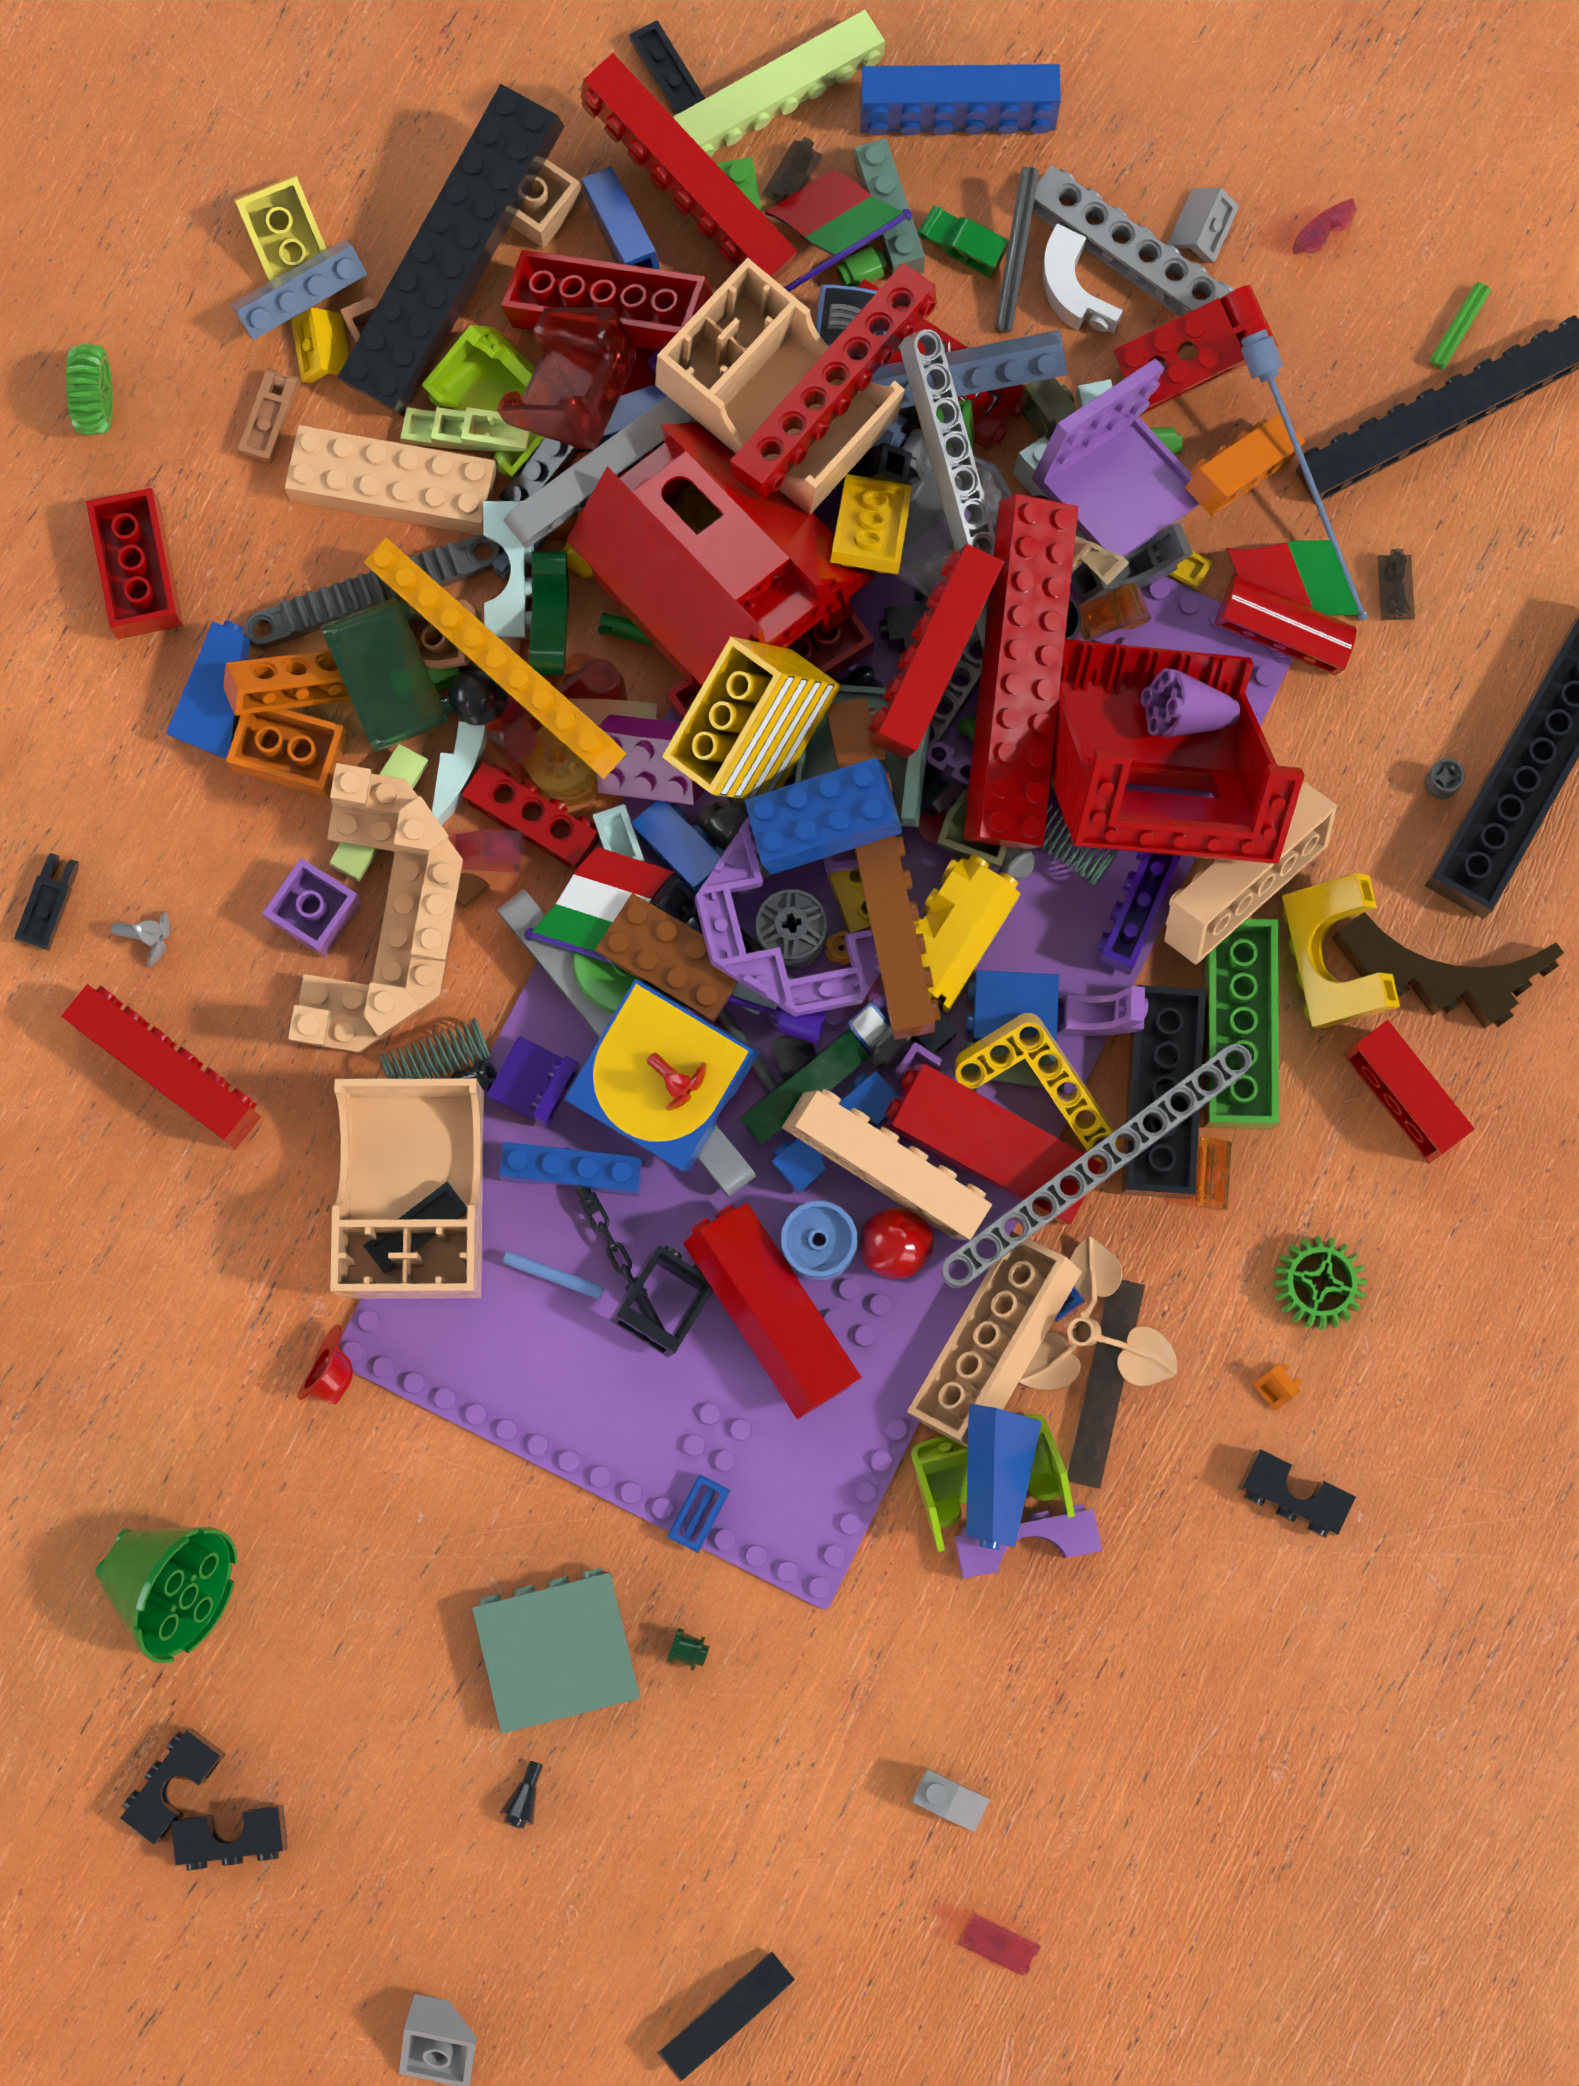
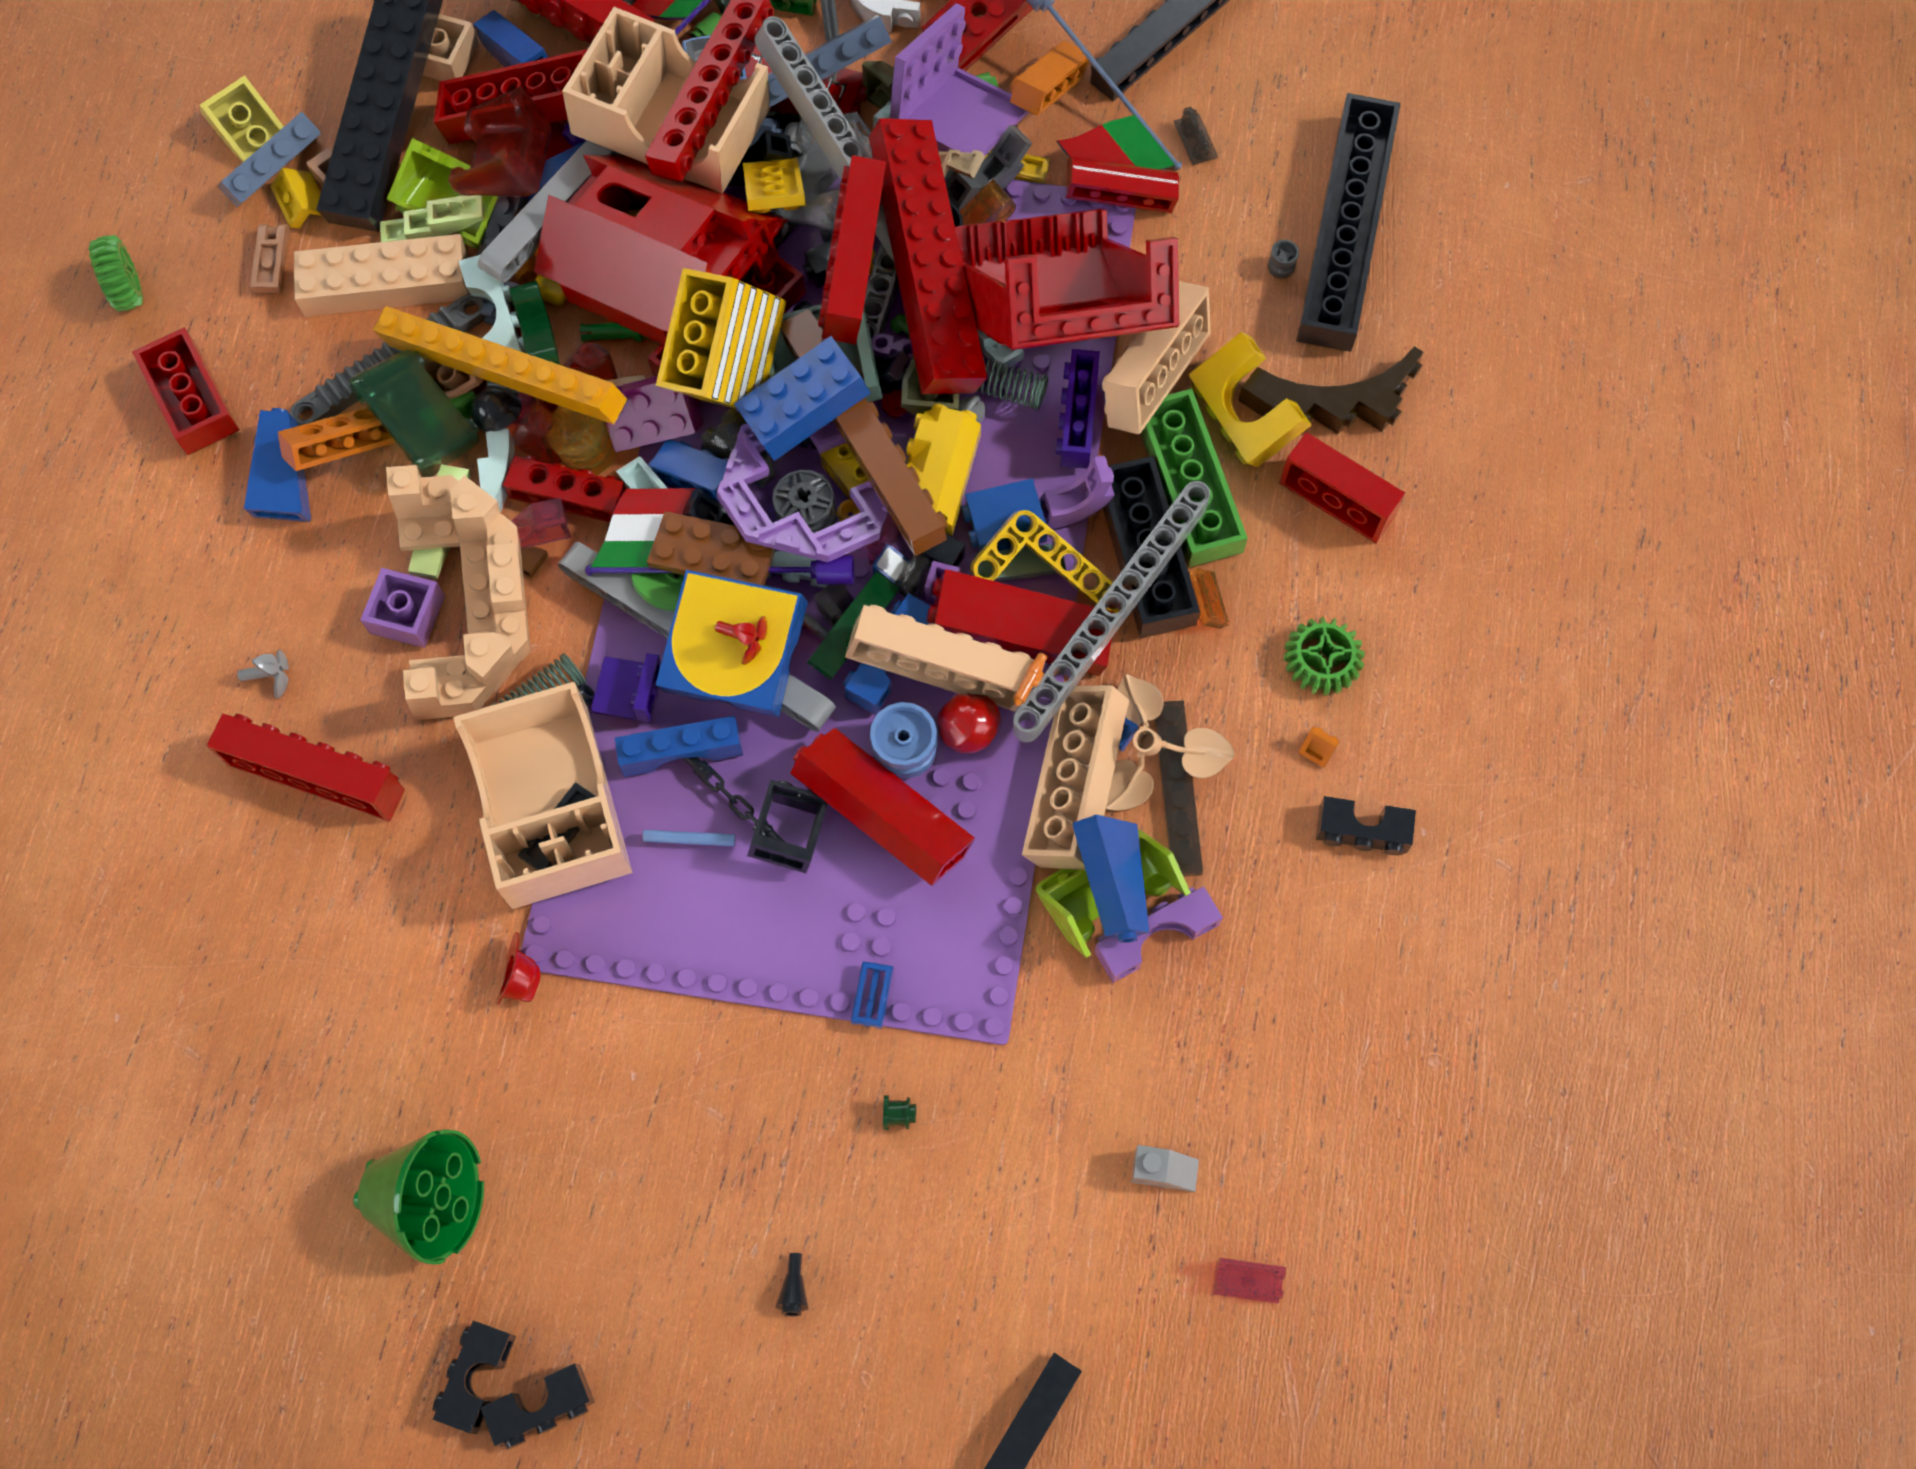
camera: 15 degrees left, 10 degrees down
(46, 904) = (176, 672): black hinge -> none
(288, 750) = (347, 494): orange brick -> none
(555, 1651) = (784, 1150): sand green panel -> none
(978, 1225) = (1031, 679): none -> orange piece
(1185, 706) = (1065, 250): medium lavender cone -> none

